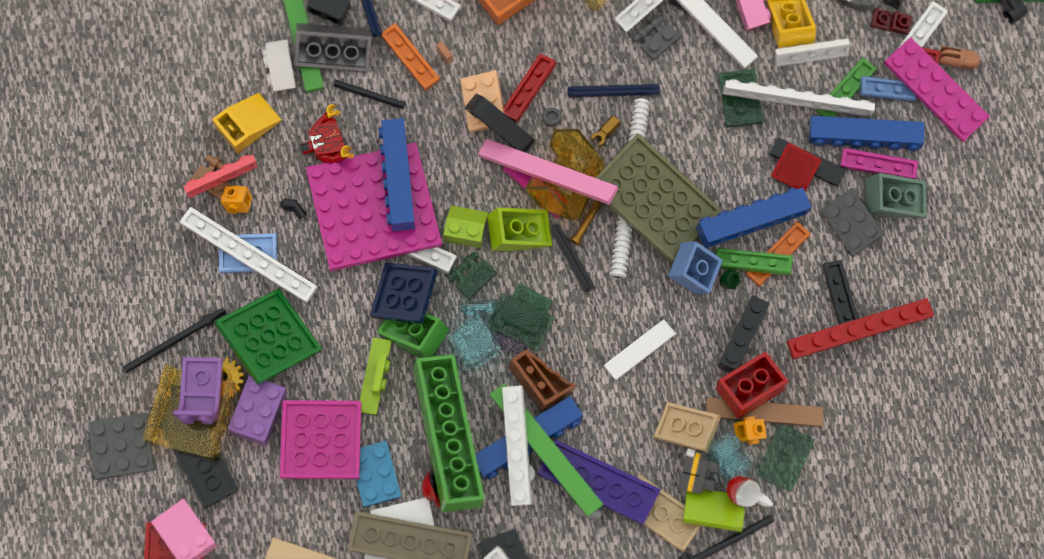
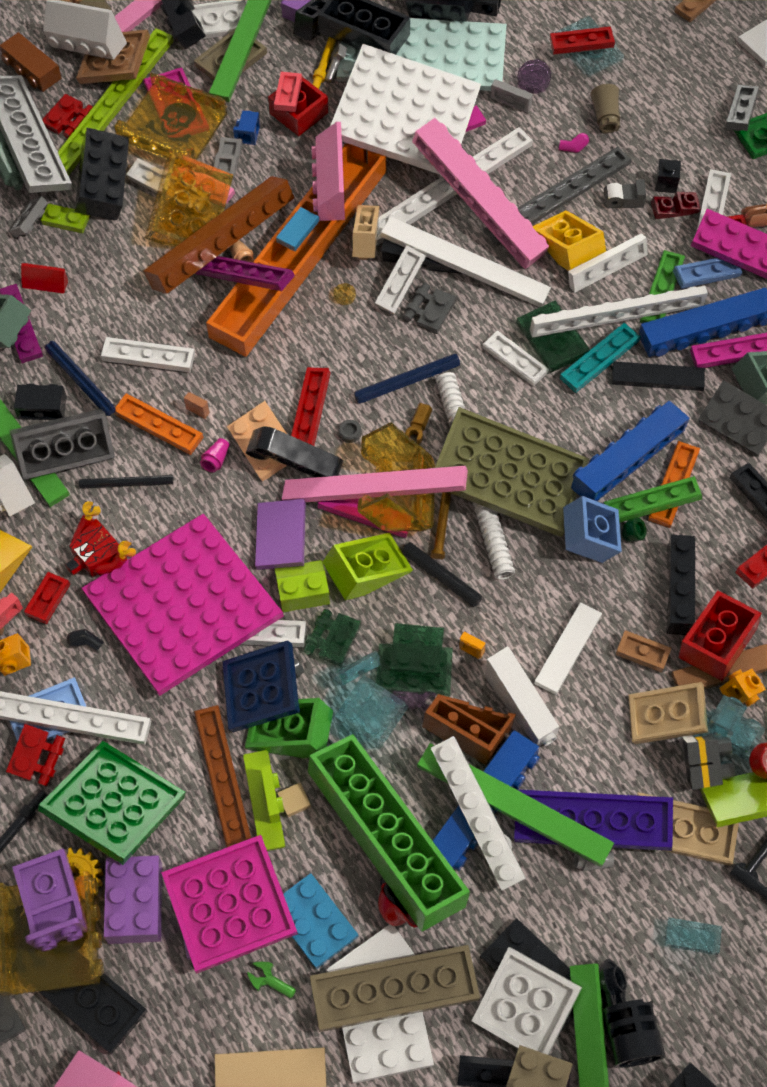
camera: 20 degrees left, 10 degrees down
(223, 278) = (28, 752): none -> red plate
(278, 165) = (47, 598): none -> red plate
(329, 502) = (270, 980): none -> bright green bar
(352, 347) = (222, 775): none -> dark orange tile
(396, 384) = (294, 799): none -> tan tile
(398, 176) = (198, 553): blue brick -> none
(442, 99) = (214, 456): none -> dark pink cone
(466, 180) = (280, 534): none -> medium lavender tile
(569, 321) = (472, 645): none -> light orange tile
(586, 374) = (521, 697): none -> white slope
(692, 374) = (643, 651): none -> medium nougat plate
(703, 105) = (515, 358): none -> white tile
(769, 130) = (600, 357): none -> teal plate
(796, 167) = (650, 382): red plate -> none

